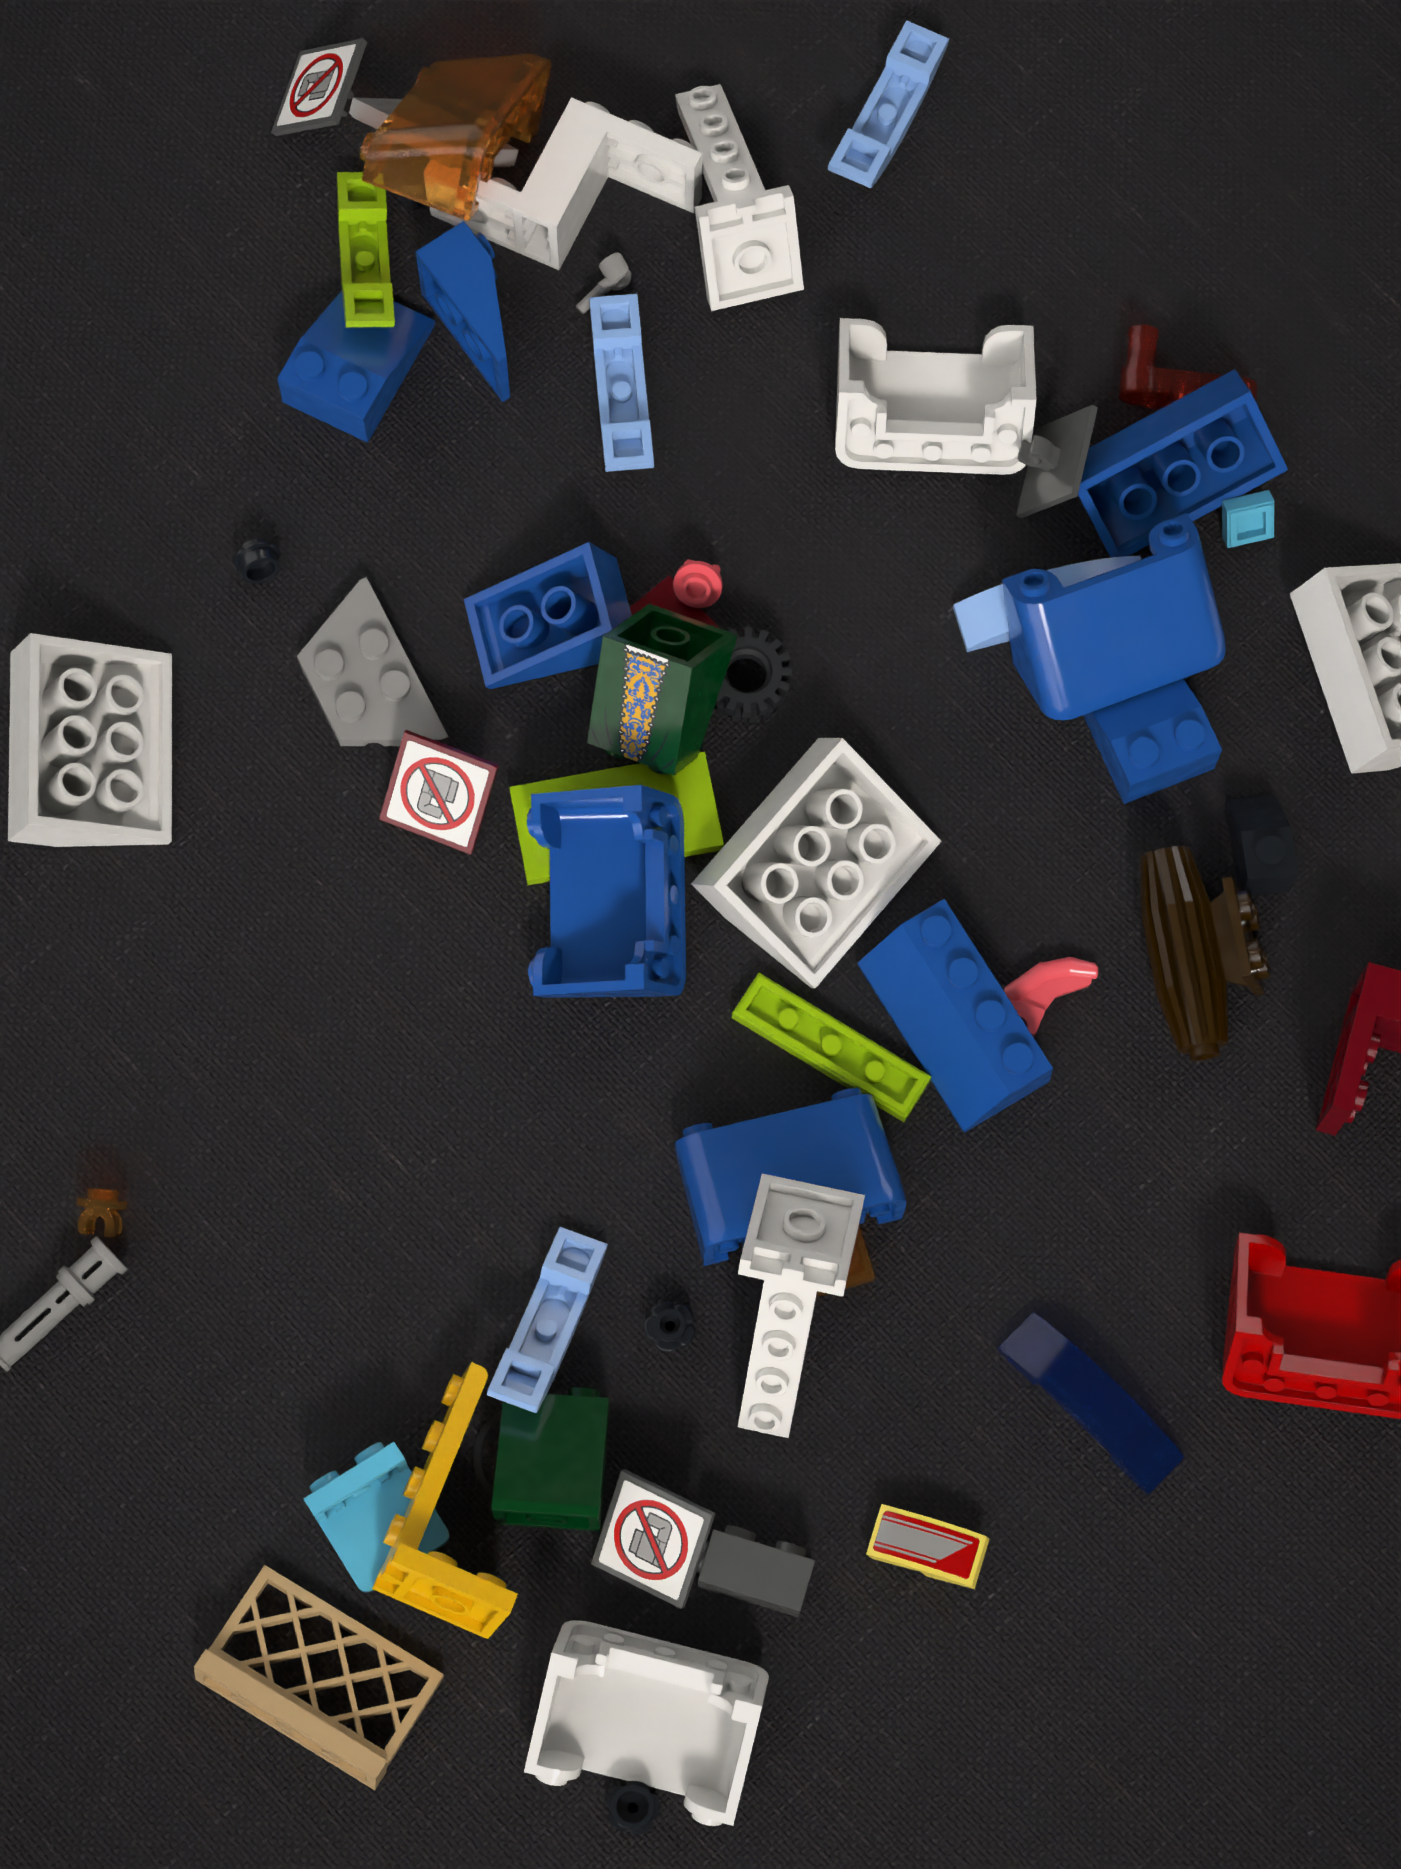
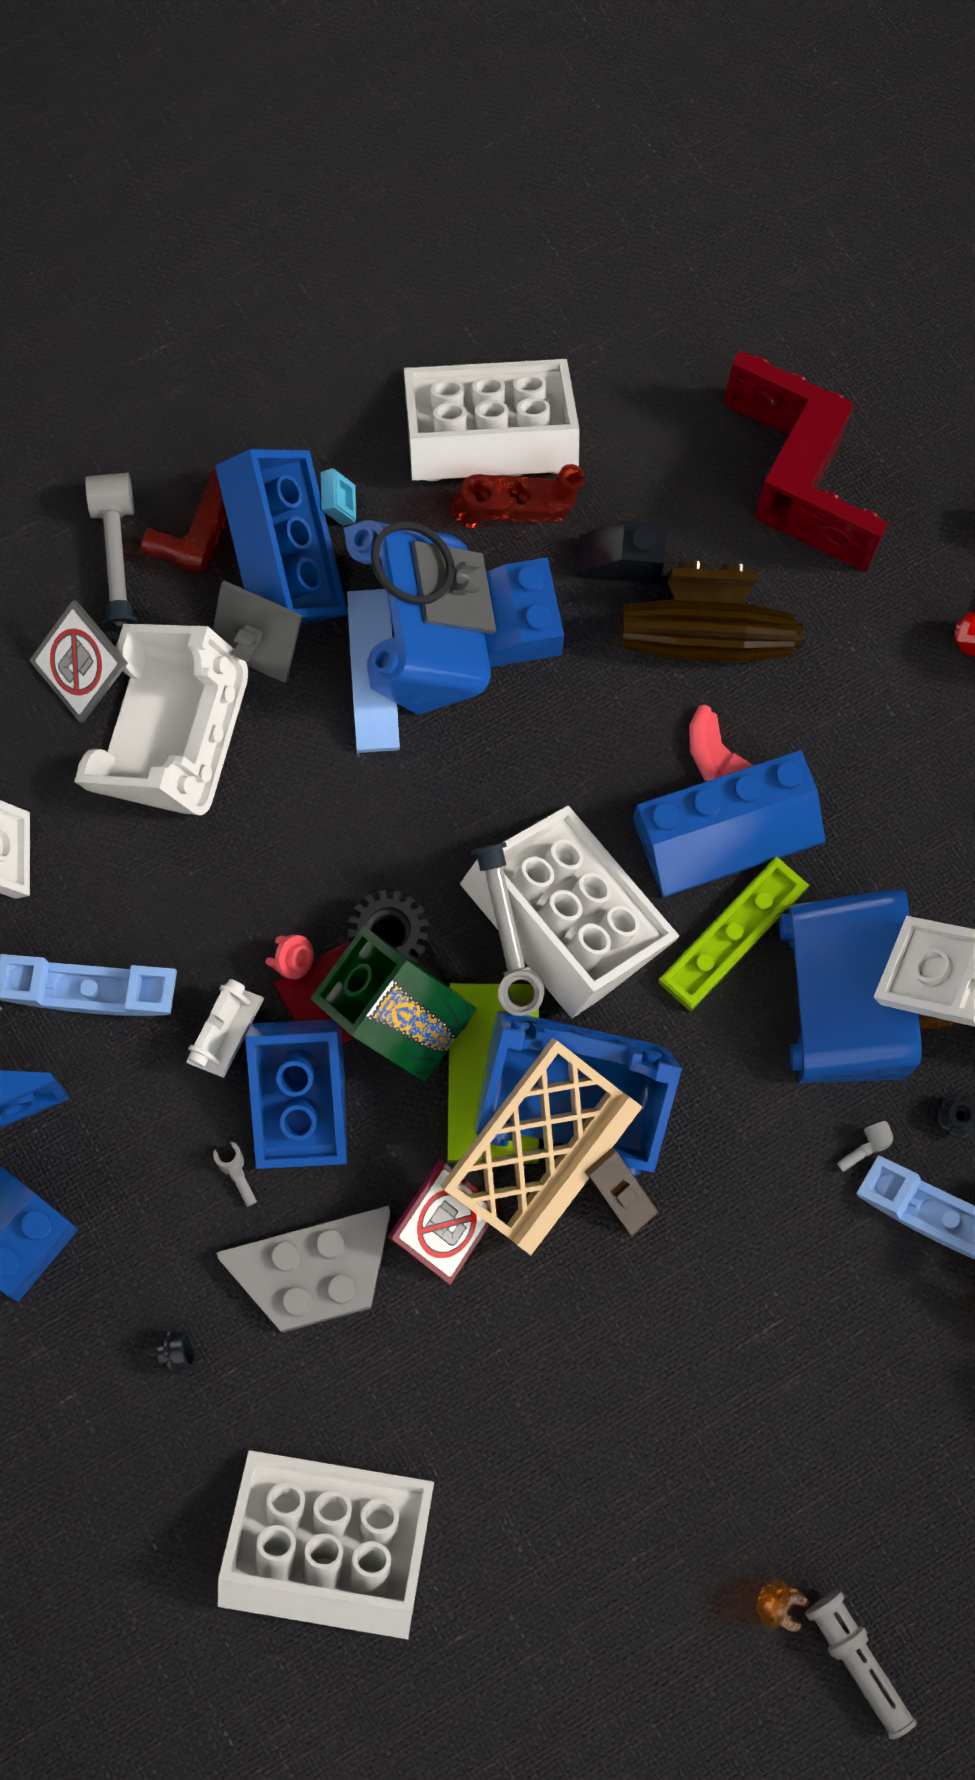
camera: 80 degrees left, 0 degrees up
(459, 578) = (236, 1173): none -> light grey hand
(506, 967) = (621, 1192): none -> piece
(530, 908) = (563, 1176): none -> tan fence
(621, 534) = (224, 1029): none -> white hinge
(626, 1242) = (879, 1139): none -> light grey hand
(722, 825) = (491, 860): none -> light grey piece
(980, 292) = (78, 661): none -> piece
(1152, 649) = (467, 601): none -> dark grey piece
(1182, 282) = (110, 499): none -> light grey piece
(1203, 590) = (393, 590): none -> black piece
(1301, 741) = (544, 499): none -> clear red beam

